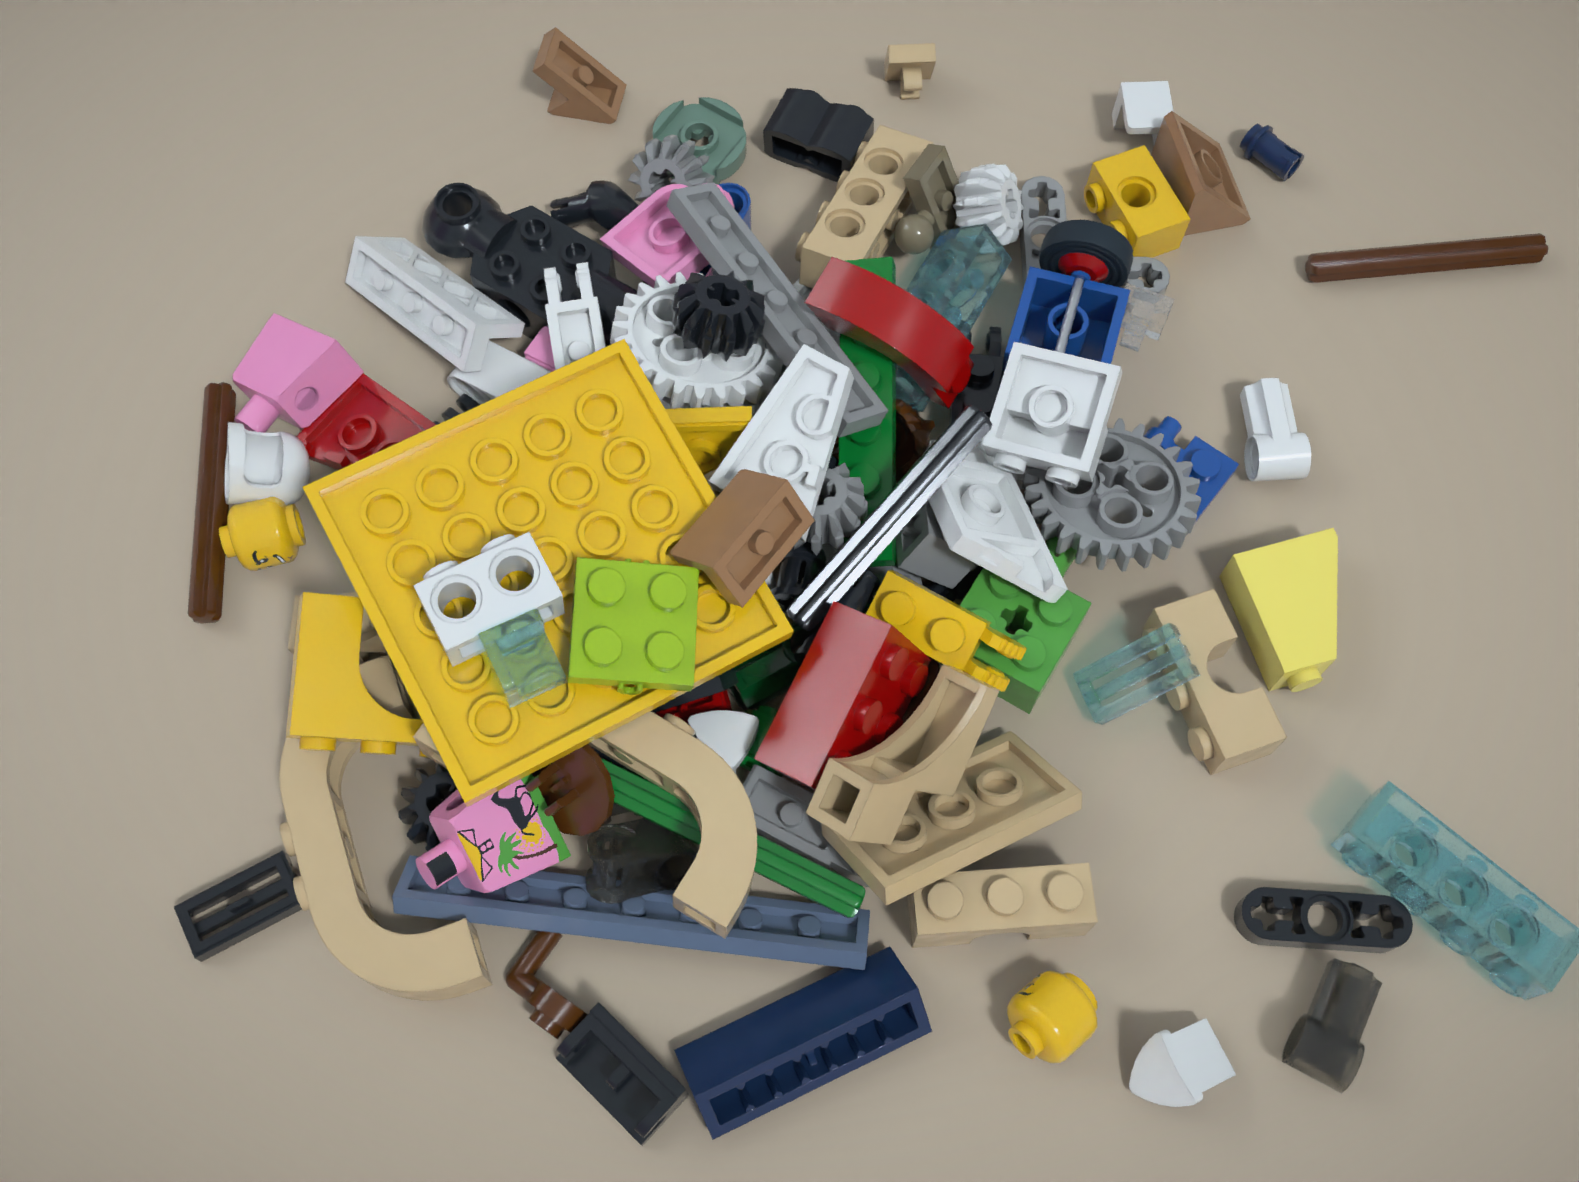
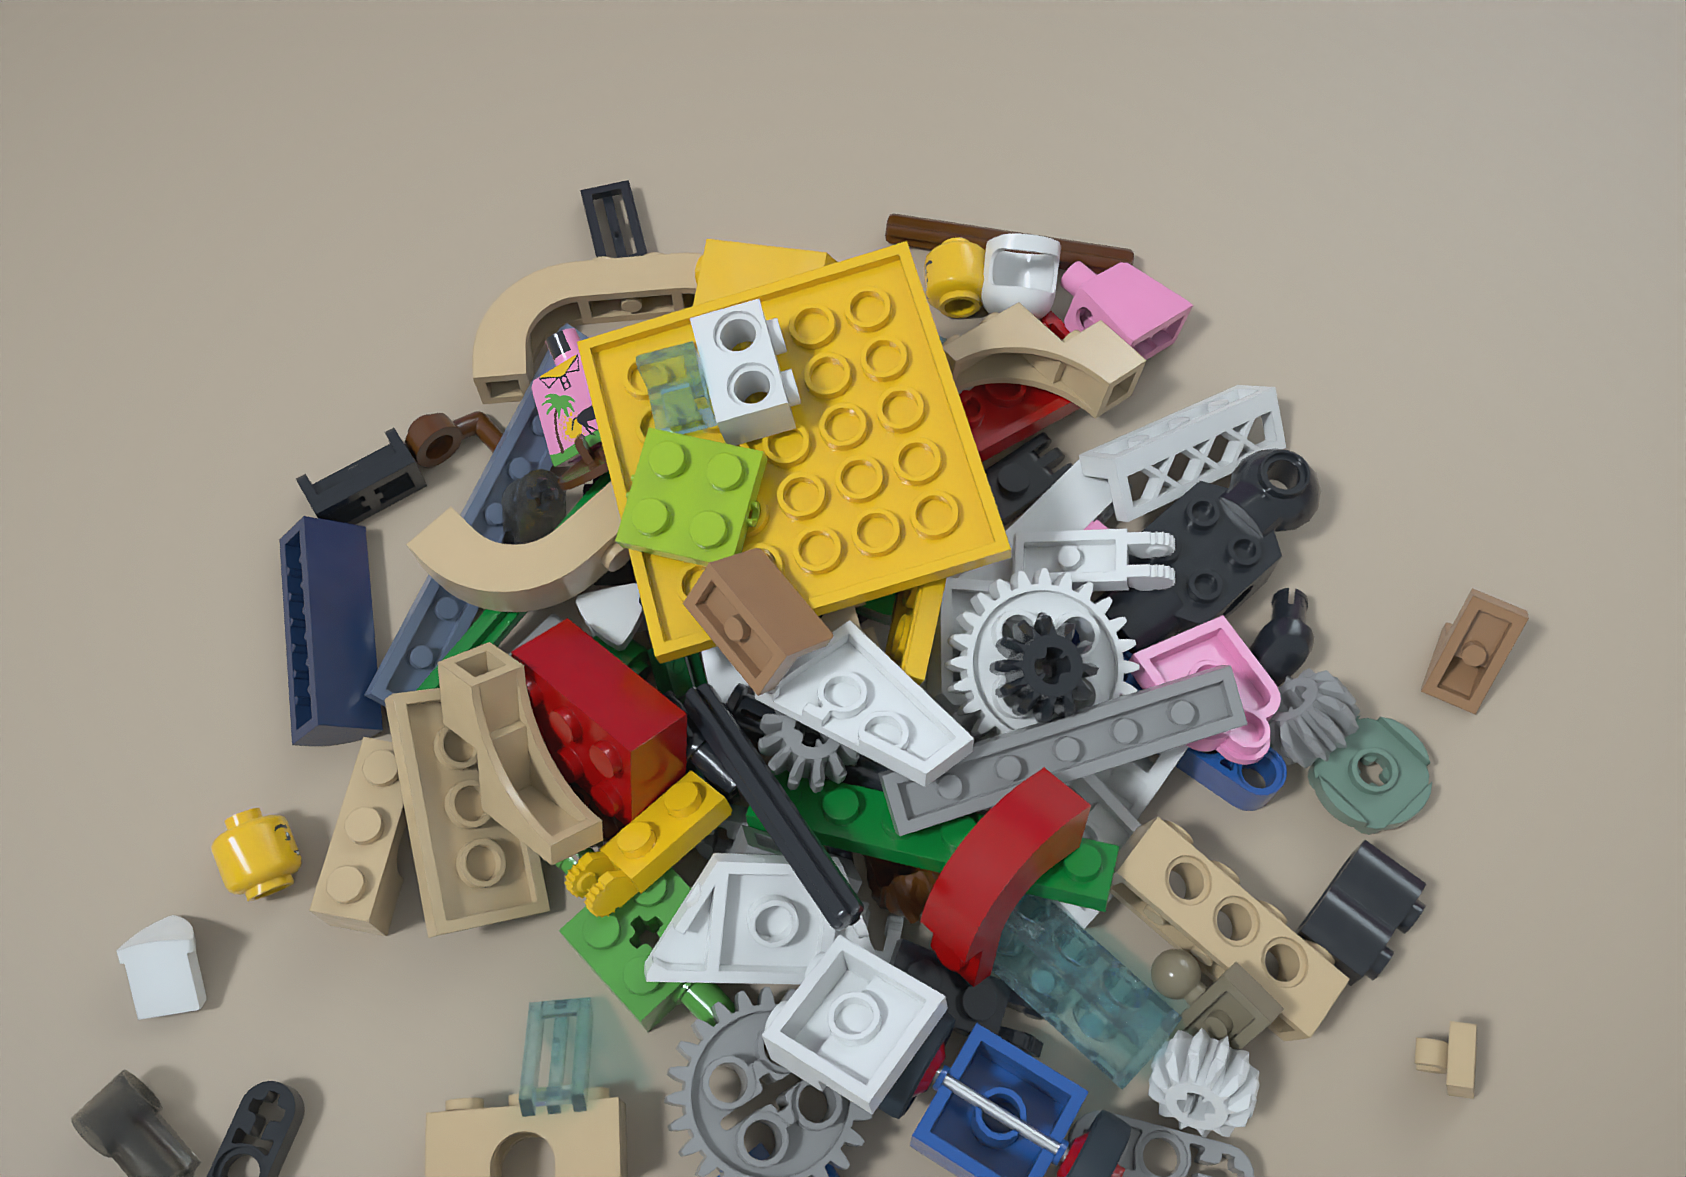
camera: 105 degrees right, 0 degrees up
(365, 384) = (1014, 347): none -> tan arch

